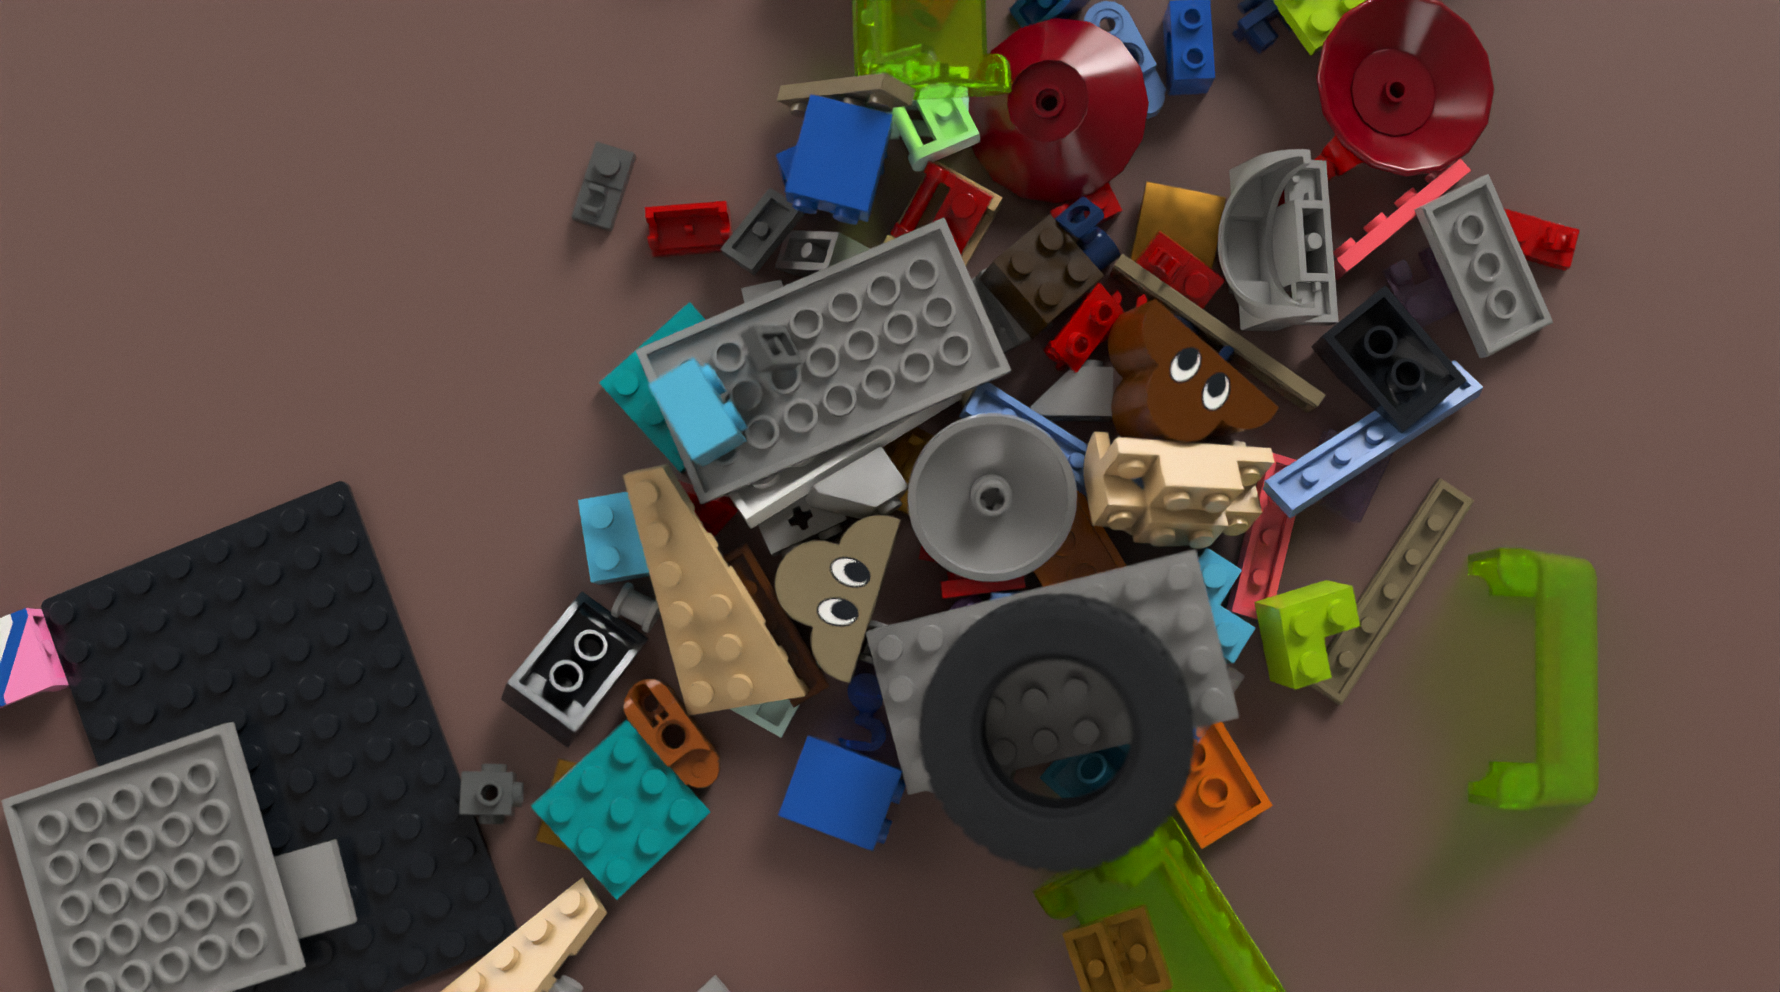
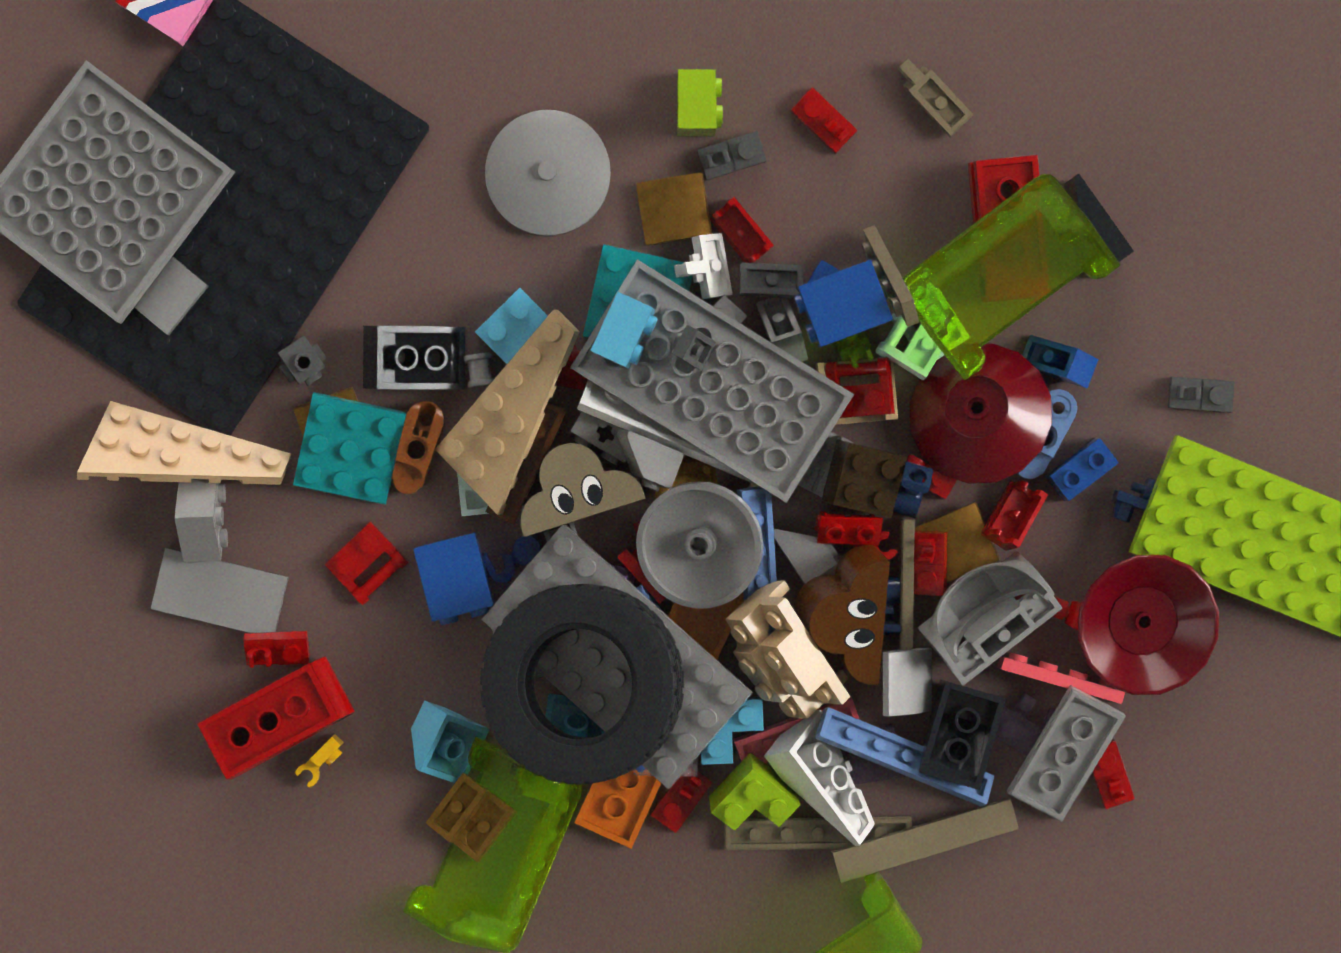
camera: 50 degrees right, 5 degrees up
(483, 390) = (547, 172): none -> light grey dish
(523, 180) = (697, 102): none -> lime brick
(615, 283) = (674, 208): none -> pearl gold slope
(635, 67) = (823, 120): none -> red plate
(699, 288) = (708, 266): none -> white hinge
(746, 879) = (359, 555): none -> red plate
(892, 193) = (854, 348): none -> clear neon green plate
(1013, 931) = (443, 741): none -> medium azure slope
(1189, 148) = (1013, 515): none -> red hinge
(1257, 721) = (680, 800): none -> red plate
(1294, 378) = (907, 681): none -> light grey slope
(1335, 544) = (821, 778): none -> white wedge
(1476, 482) = (924, 840): none -> dark tan tile

